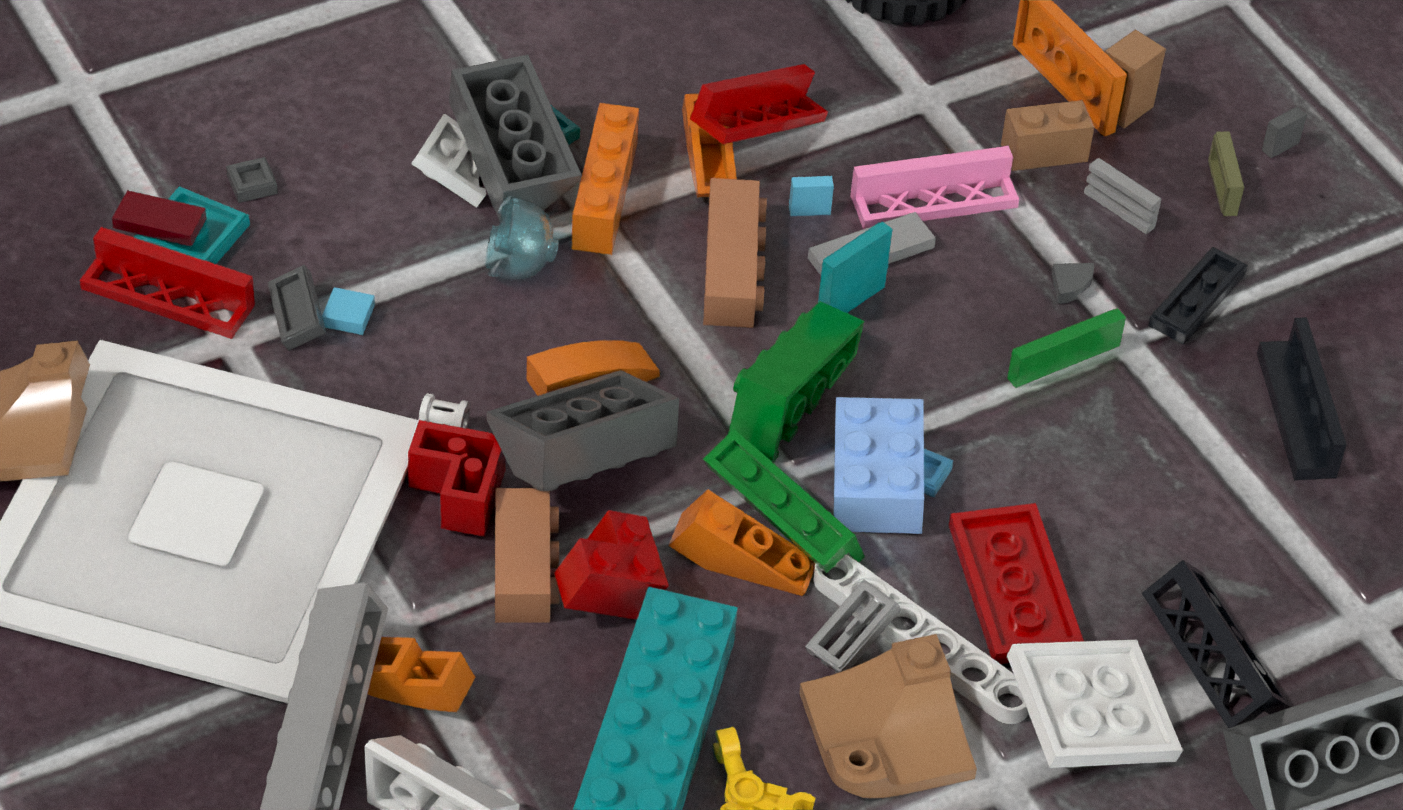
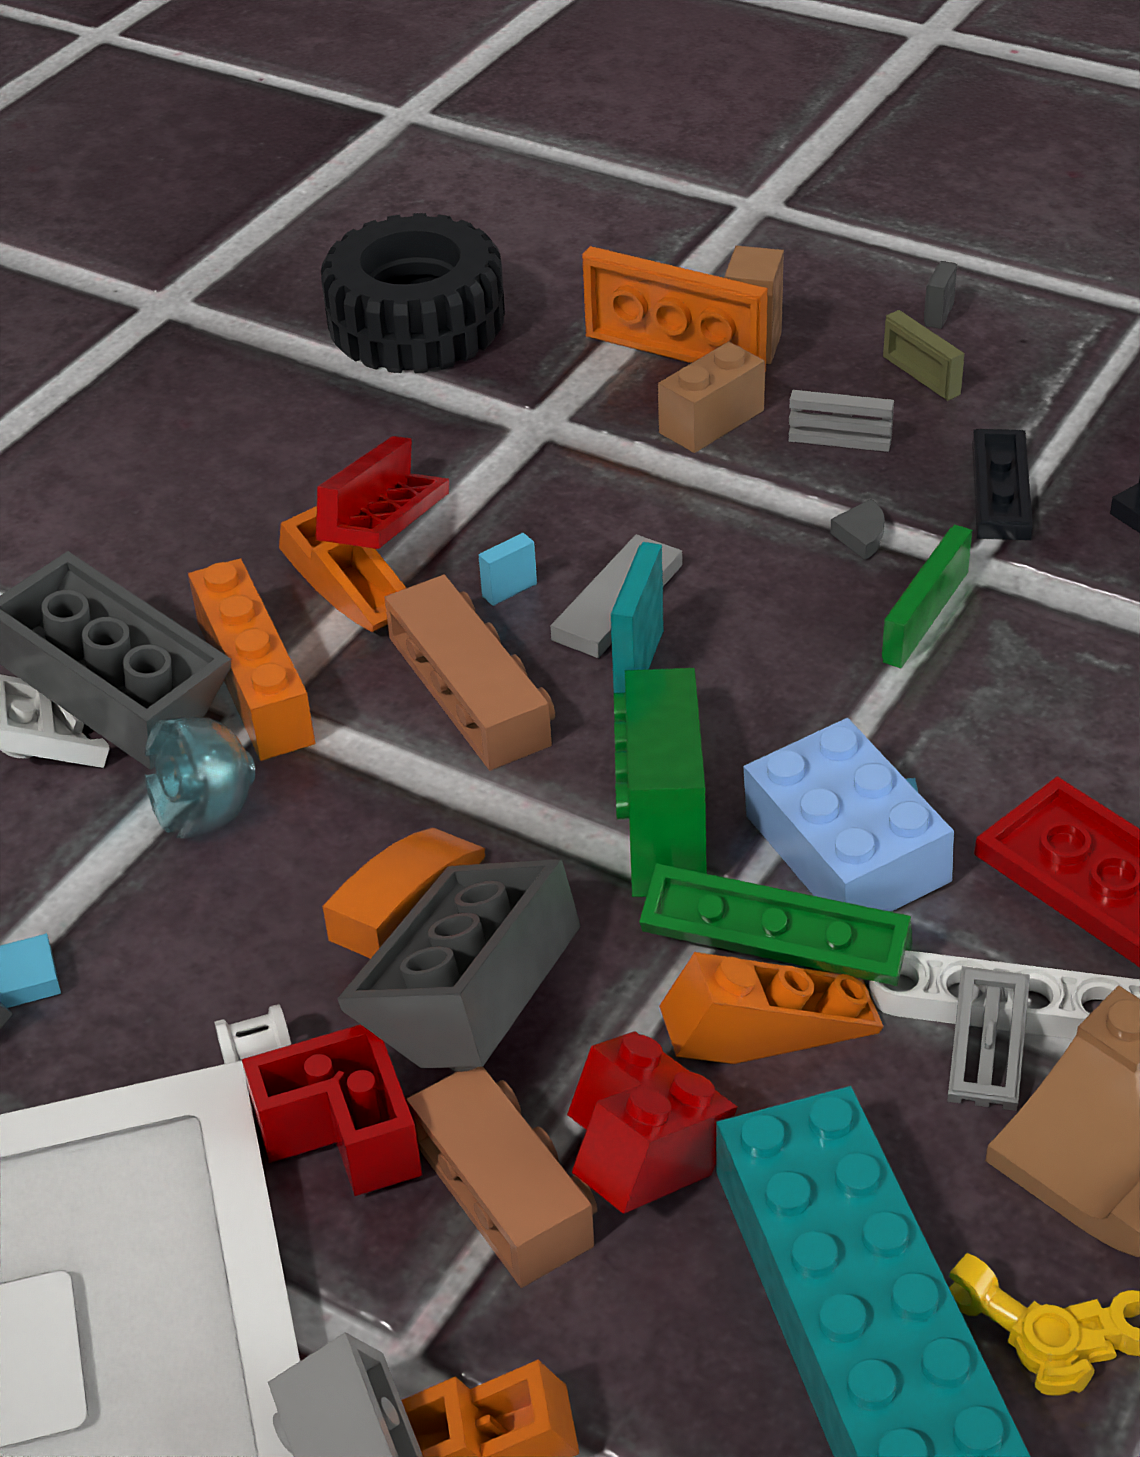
camera: 25 degrees left, 5 degrees down
(930, 181) = (622, 497): bright pink fence -> none

